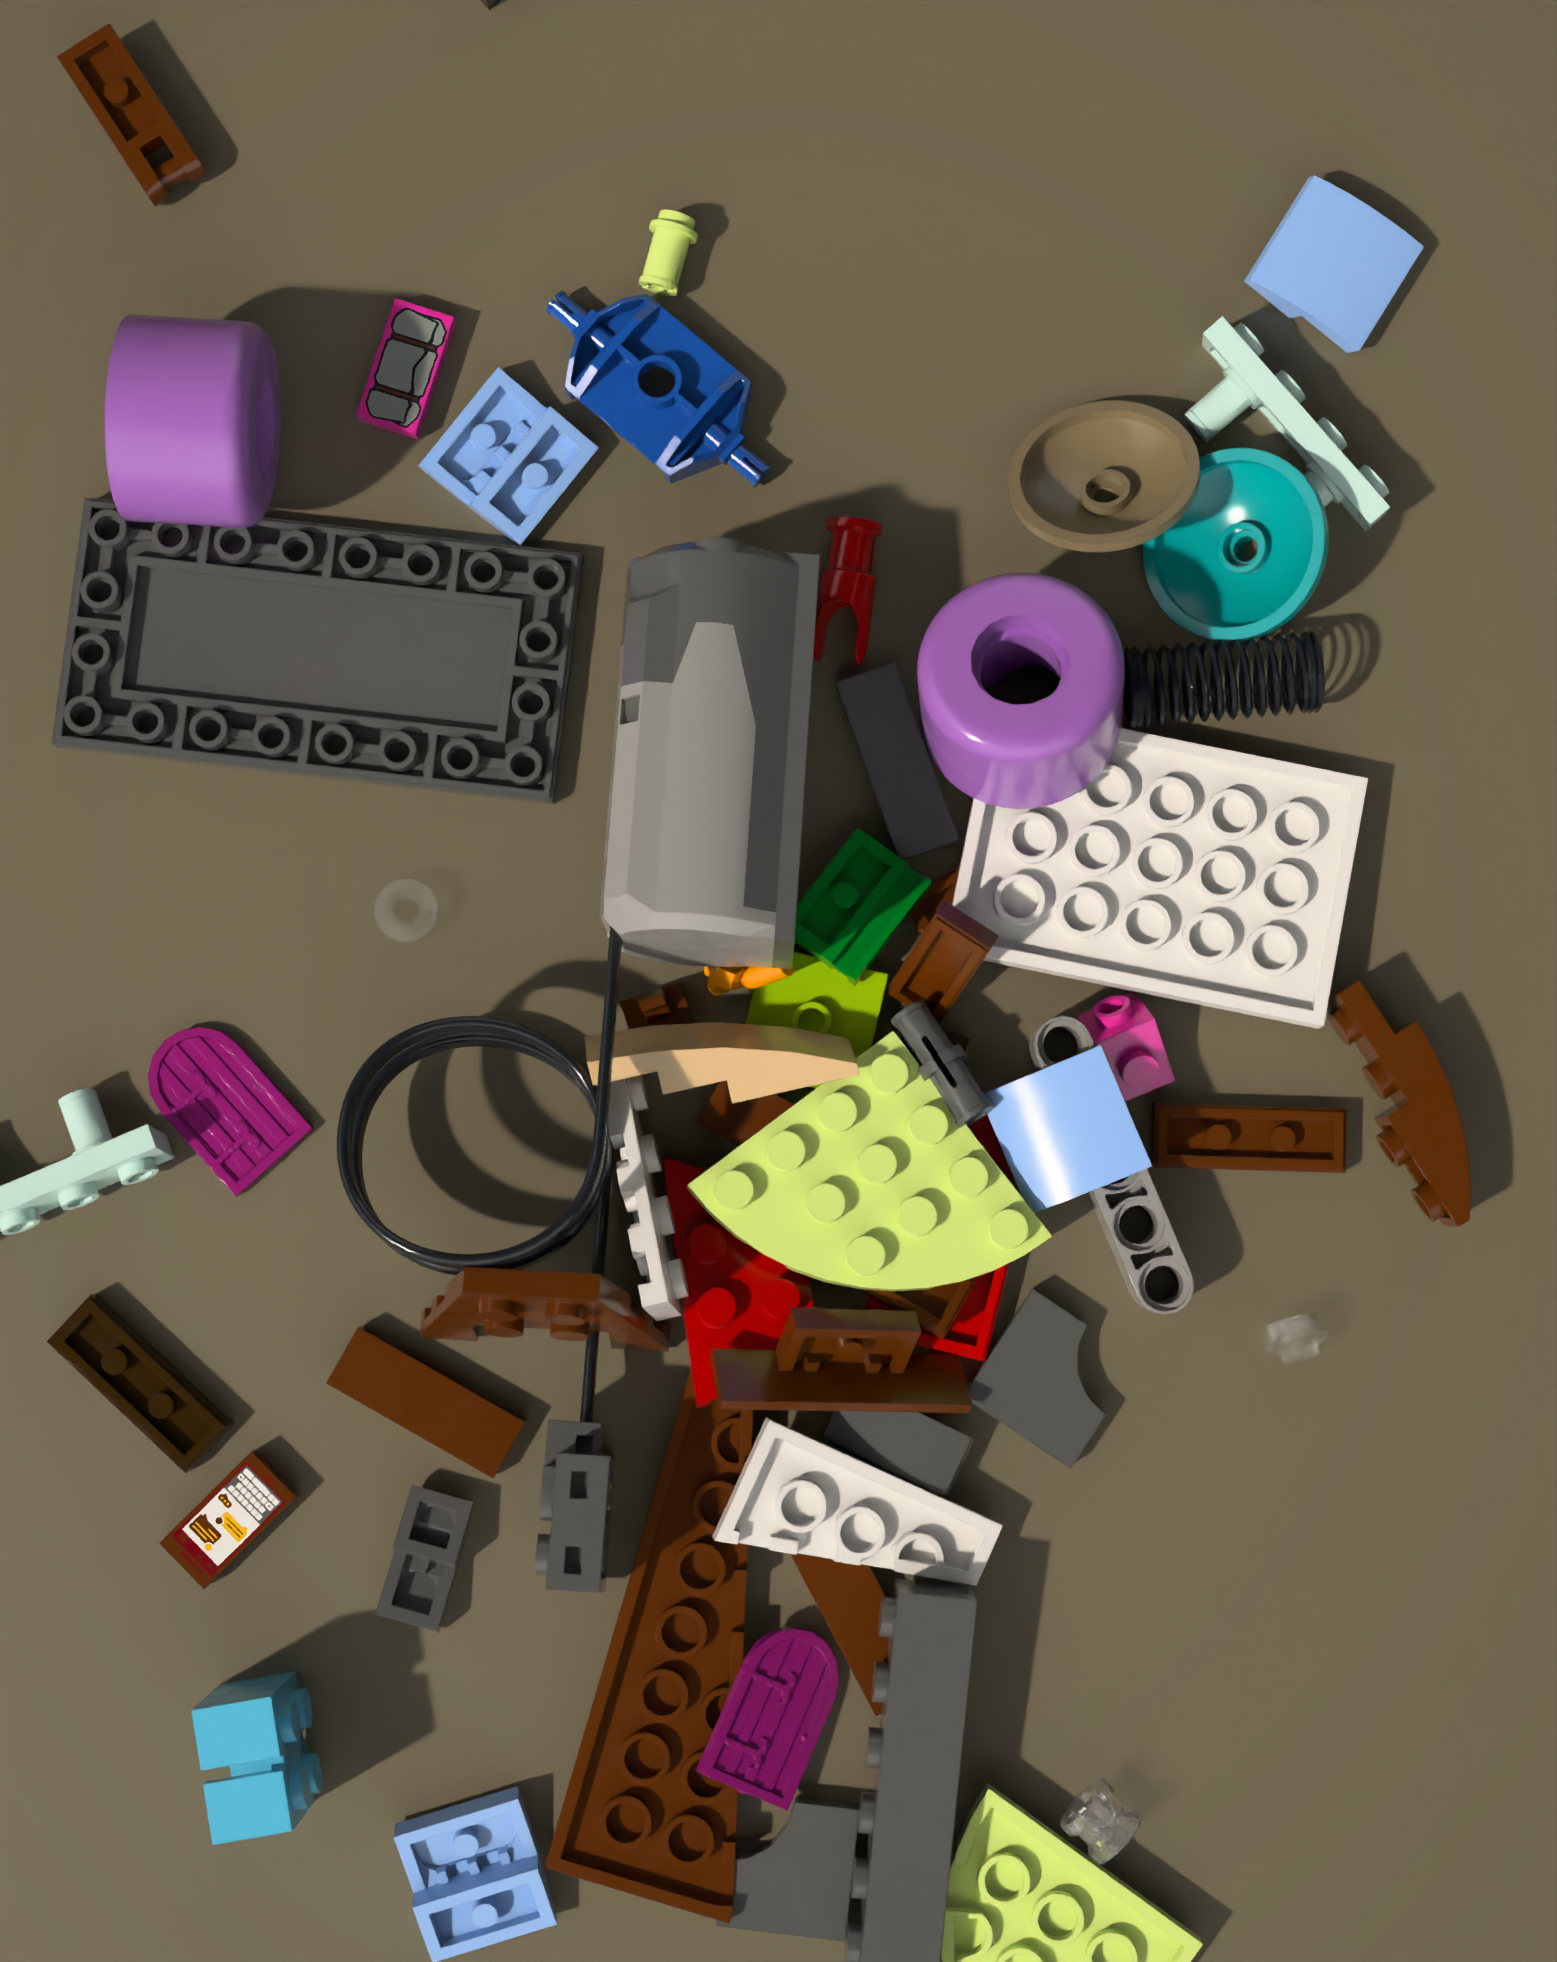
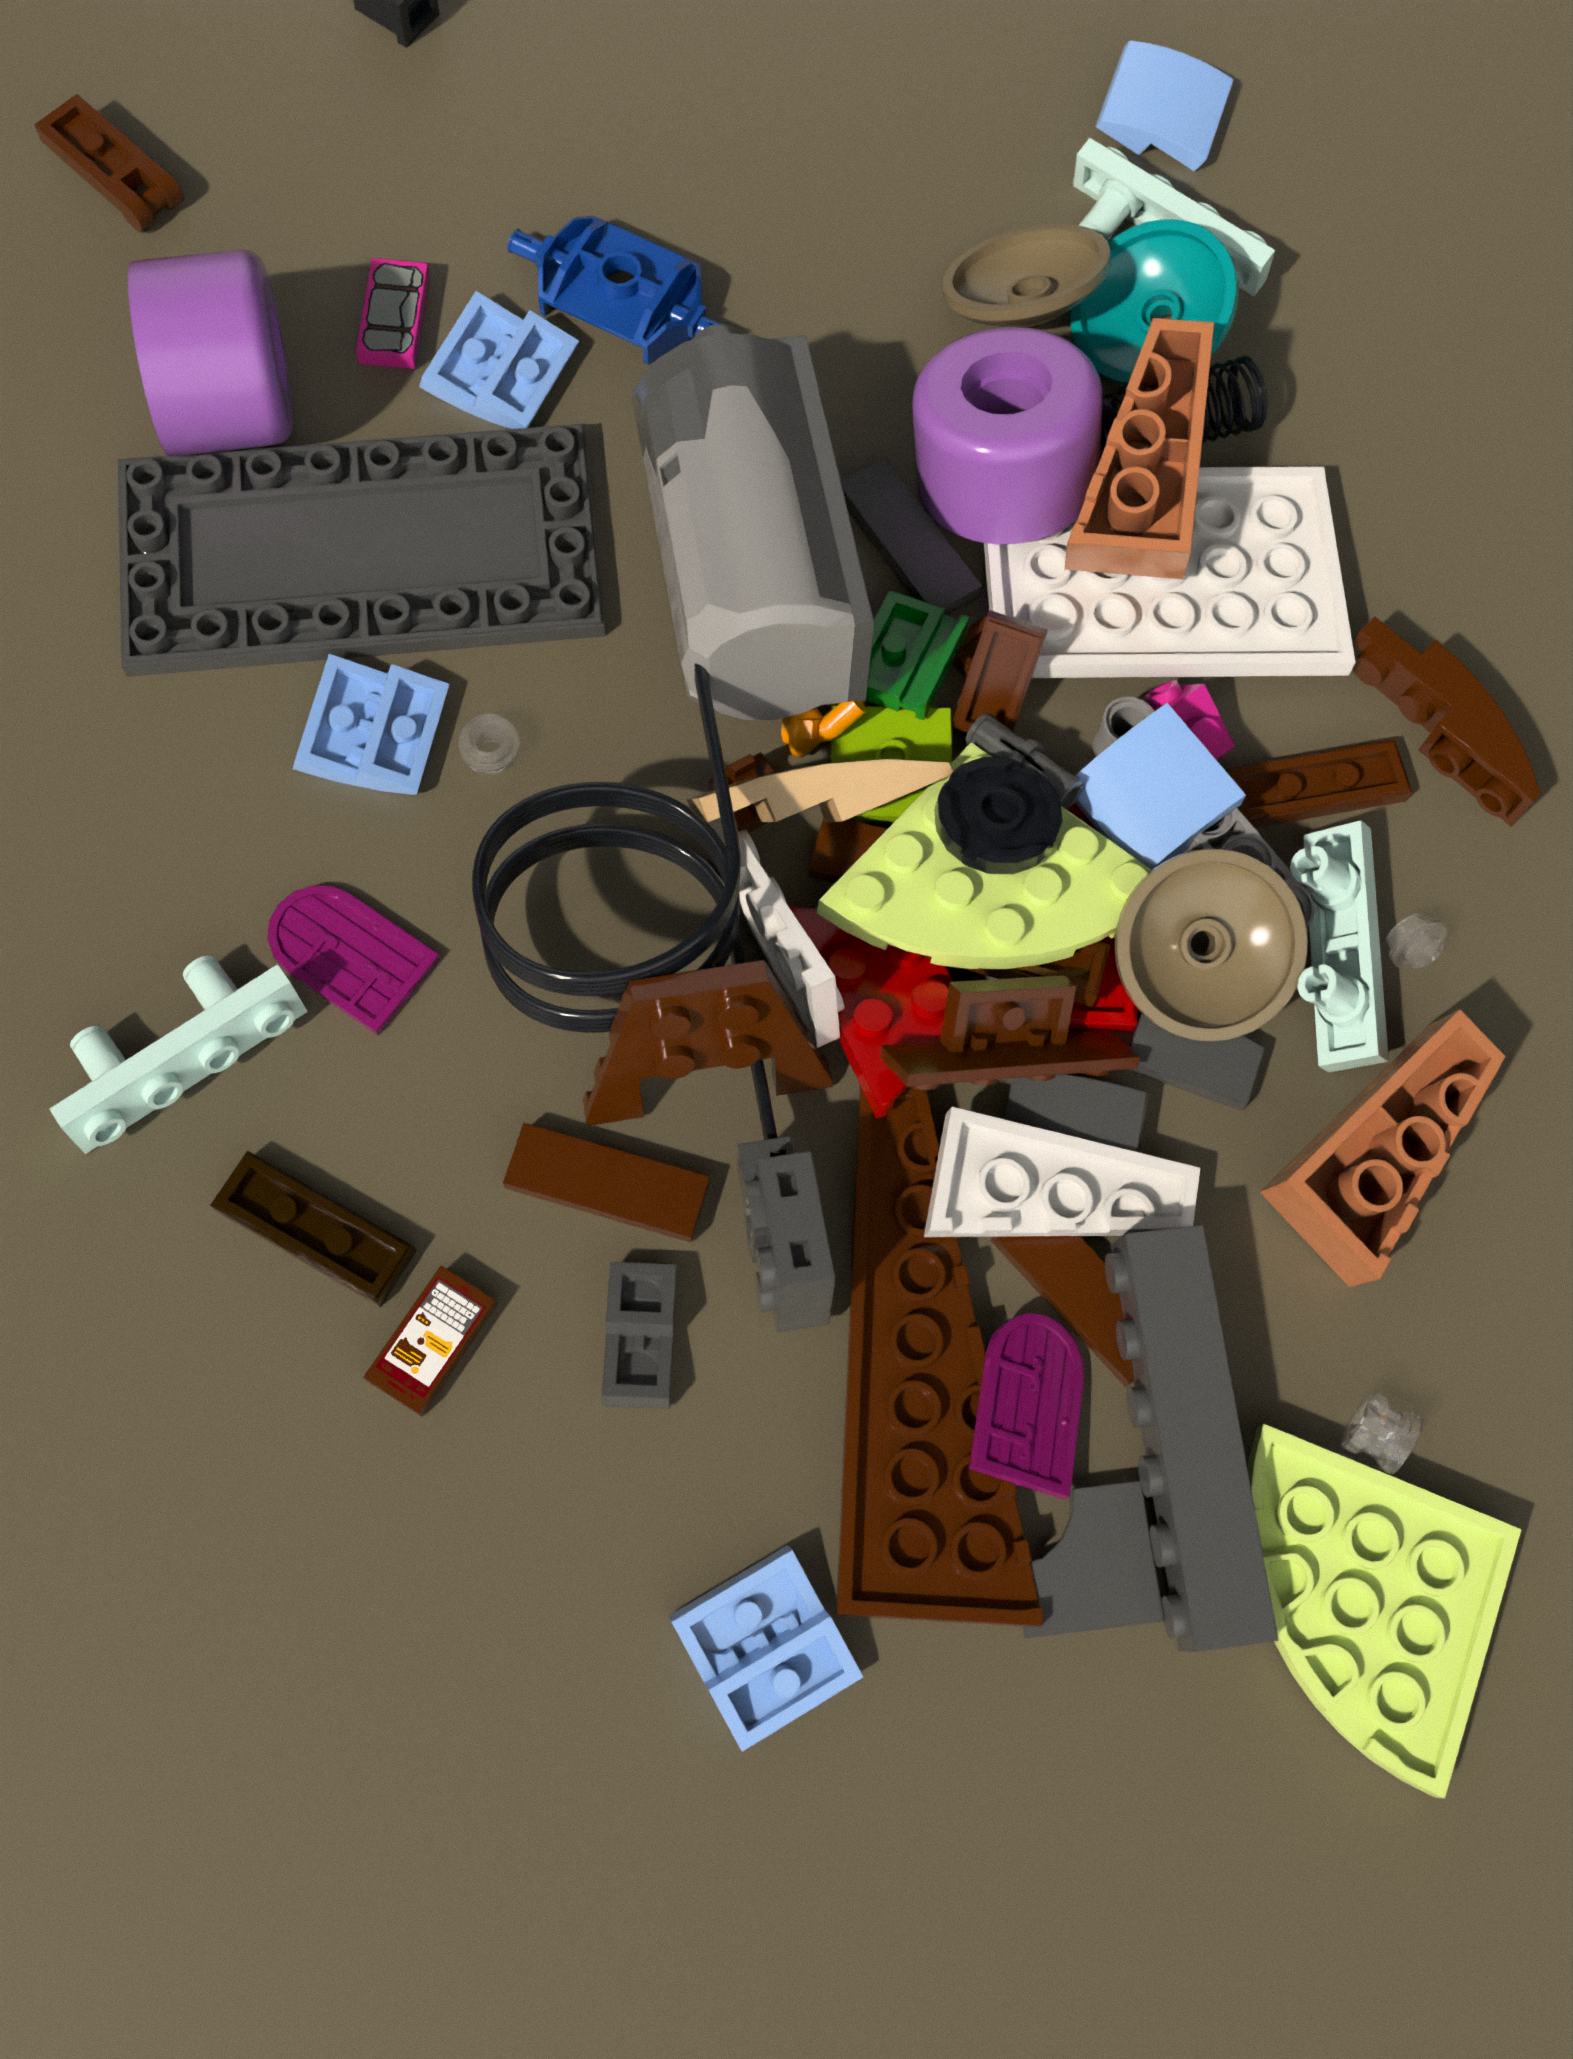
camera: 25 degrees left, 15 degrees down
(259, 1734) = (516, 1575): medium azure piece -> none
(292, 863) = (371, 726): none -> light blue slope
(667, 252) = (604, 175): yellowish green pin -> none
(847, 579) = (836, 398): red piece -> none
(890, 1133) = (997, 816): none -> black tile
(1076, 1348) = (1252, 951): none -> dark tan dish
(1154, 778) = (1147, 480): none -> nougat wedge
(1192, 1548) = (1376, 1158): none -> nougat wedge
(1218, 1327) = (1345, 947): none -> light aqua plate

